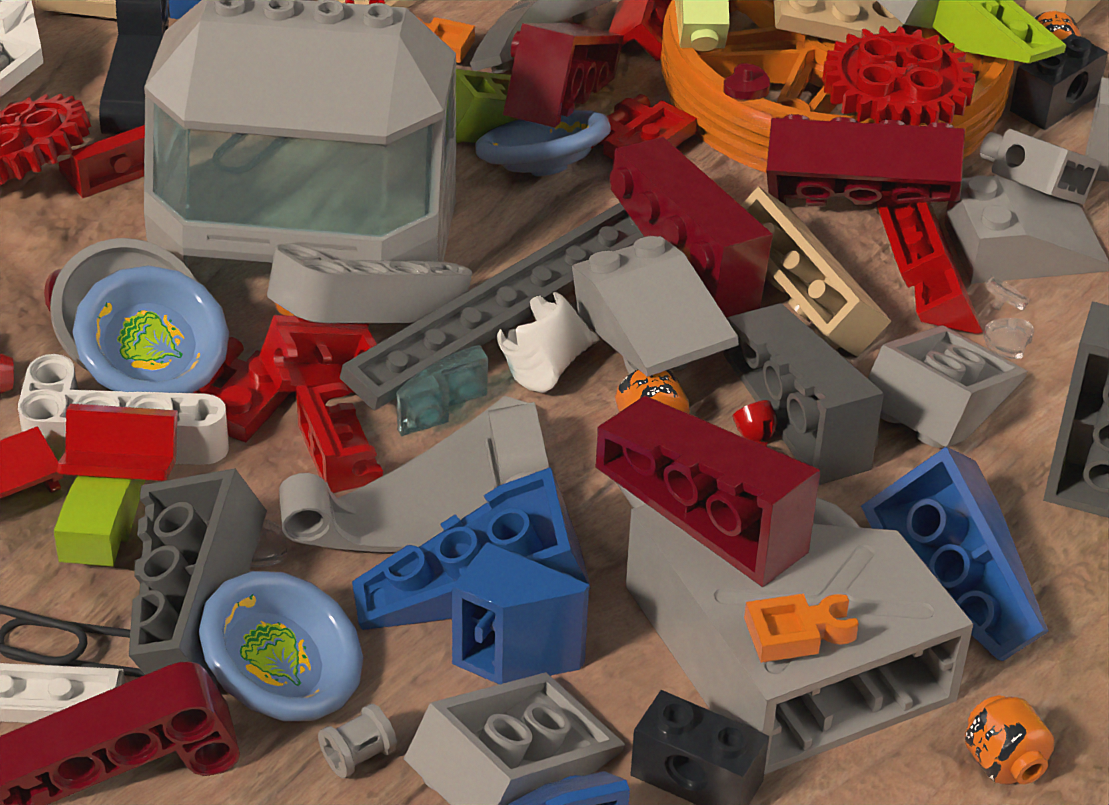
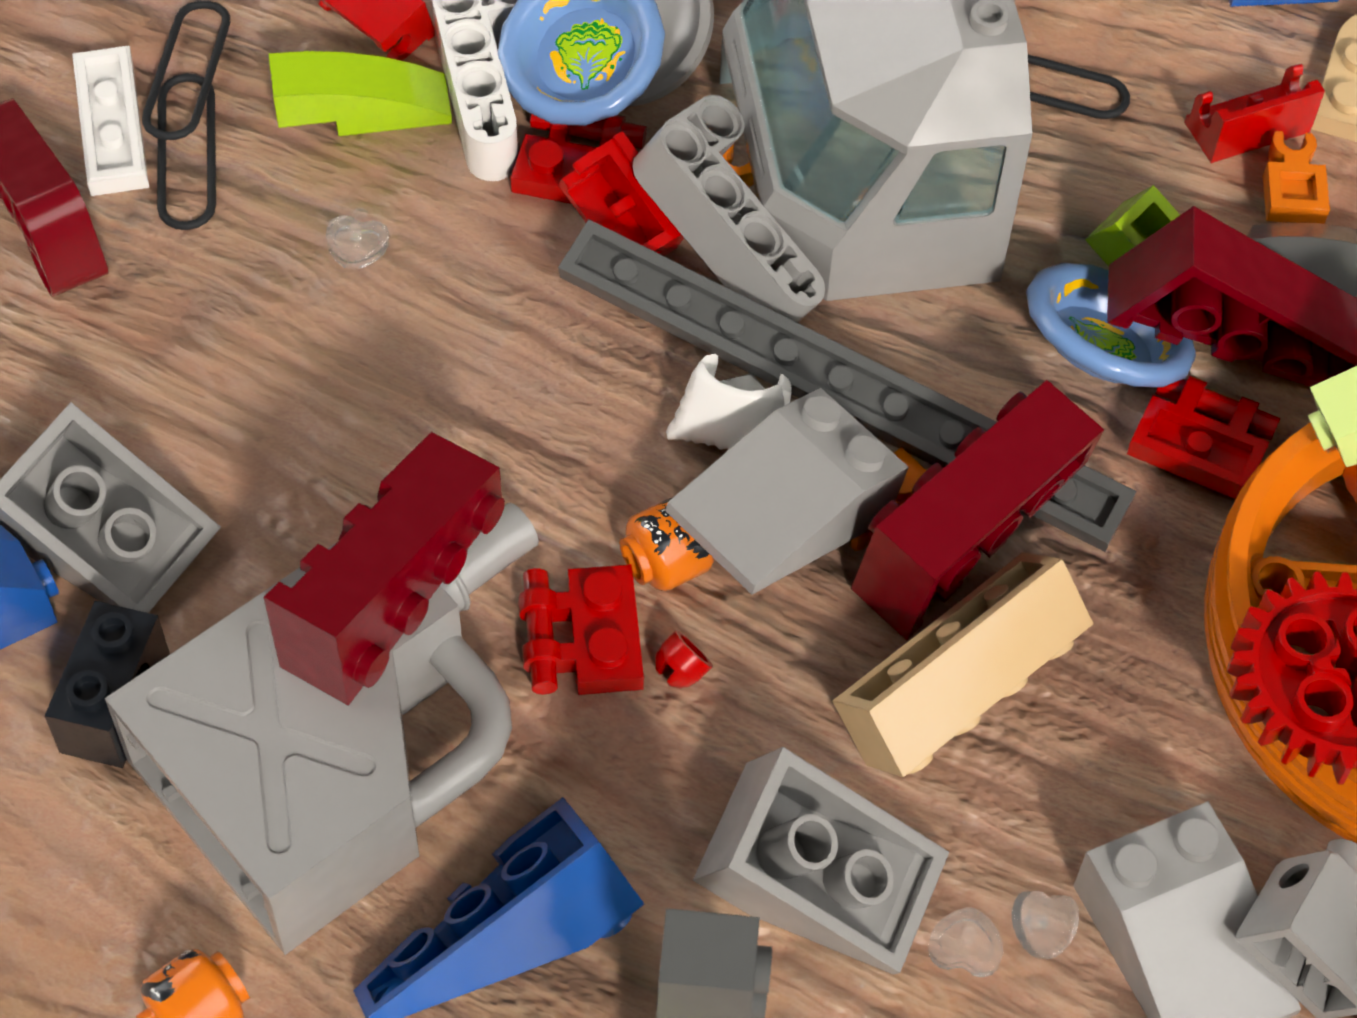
camera: 75 degrees right, 15 degrees up
(119, 442) = (416, 76): red panel -> none
(193, 541) = (245, 184): dark grey wedge -> none
(281, 646) = (175, 279): medium blue piece -> none
(336, 438) = (514, 258): red hinge -> none
(357, 740) = (83, 380): light grey bush -> none
(422, 493) = (469, 375): light grey panel -> none
(450, 381) = (615, 325): clear light blue slope -> none
(517, 618) = (251, 460): blue slope -> none
(518, 516) = (346, 417): blue wedge -> none
(747, 83) = (1267, 504): dark red piece -> none
(792, 628) = (195, 695): orange plate -> none
(820, 400) = (734, 693): dark grey wedge -> none
(863, 160) = (1168, 674): dark red wedge -> none
(927, 264) = (1085, 802): red wedge -> none

